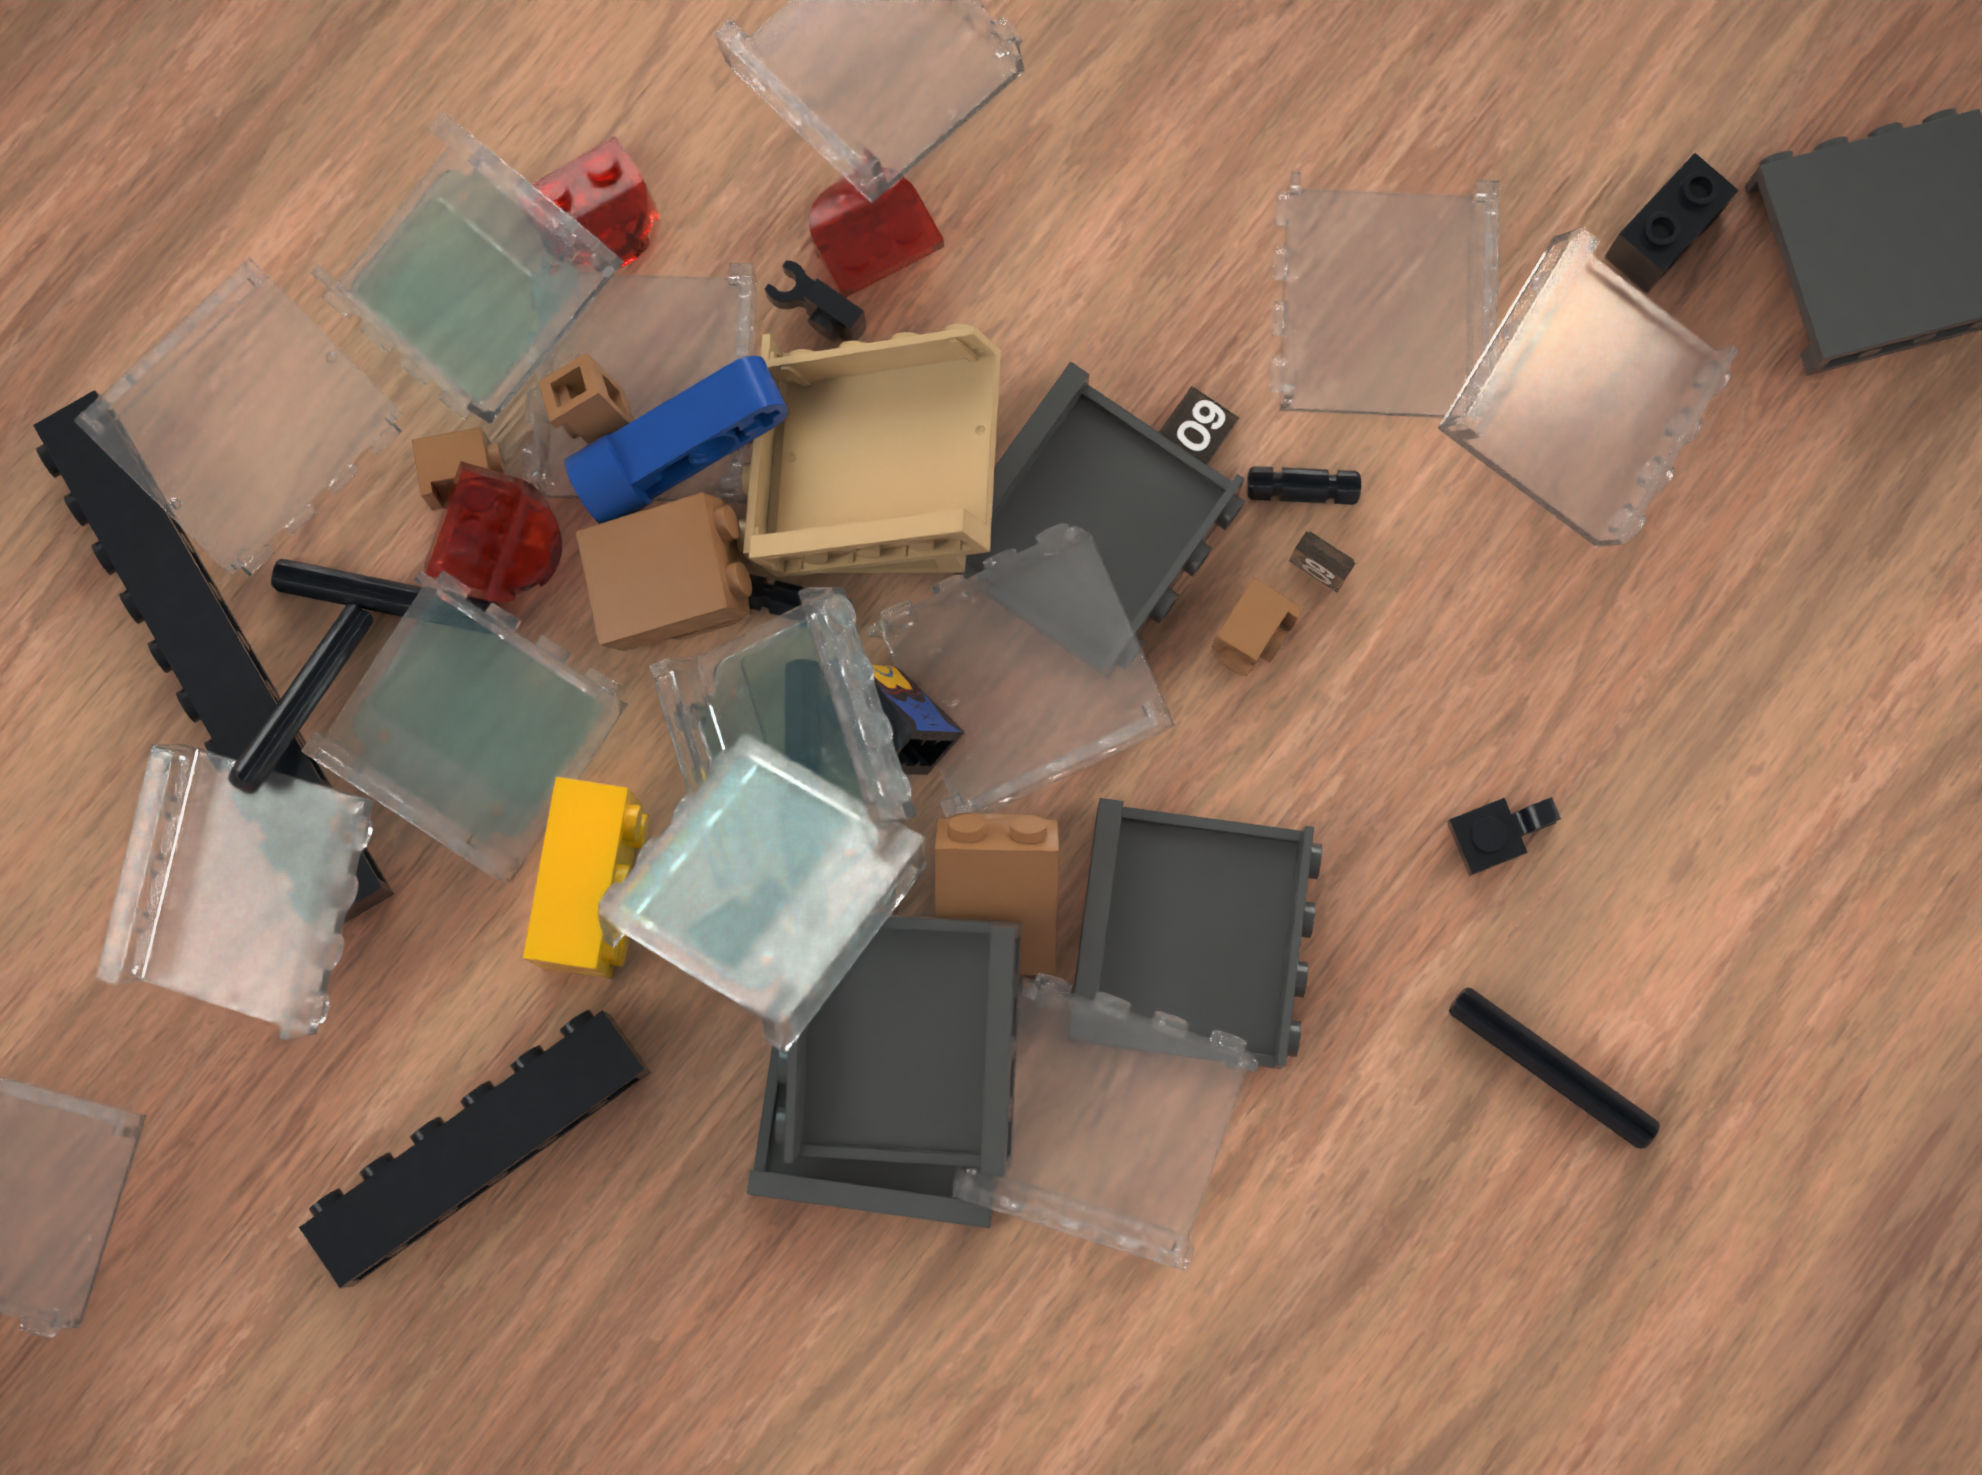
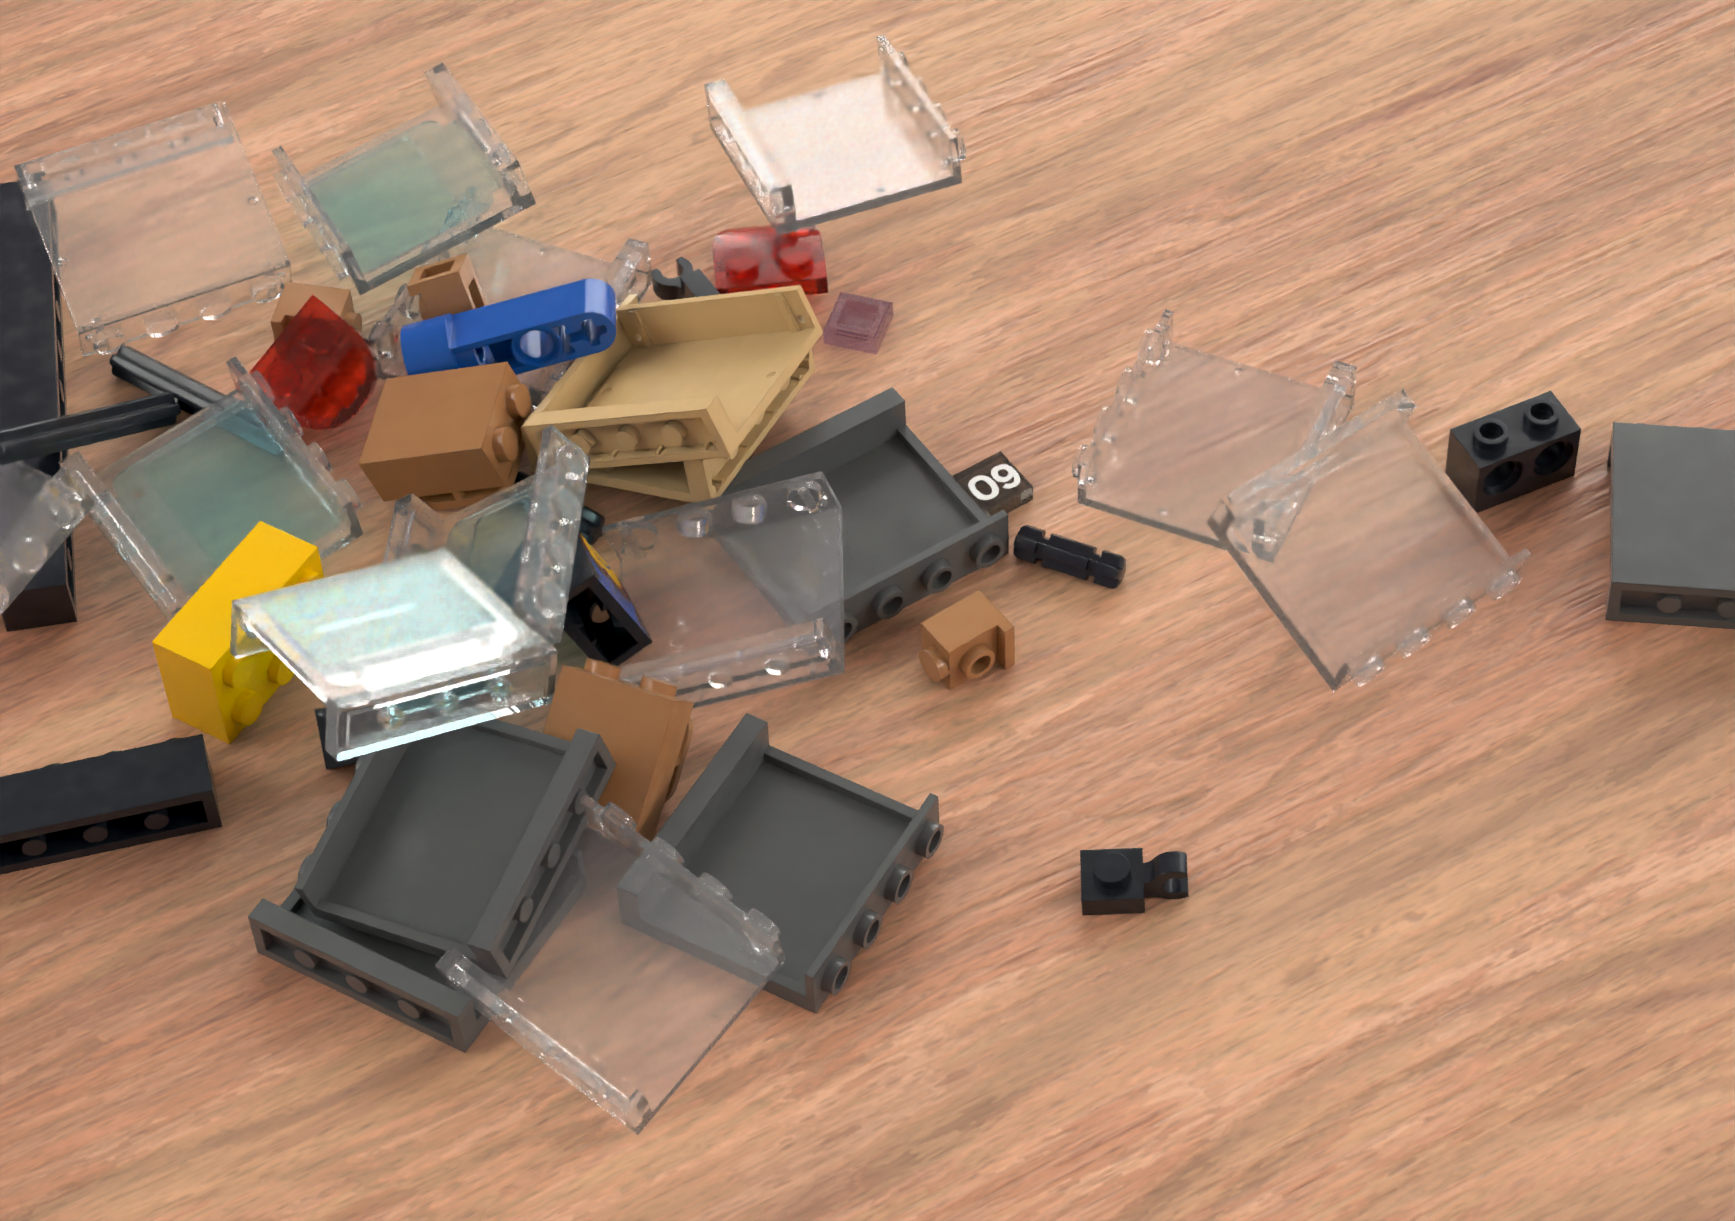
camera: 25 degrees right, 30 degrees down
(606, 197) = (559, 183): clear red slope -> none
(984, 268) = (858, 323): none -> tile
(1322, 561) = (1055, 611): clear smoke tile -> none
(1554, 1068) = (1089, 1093): black axle -> none

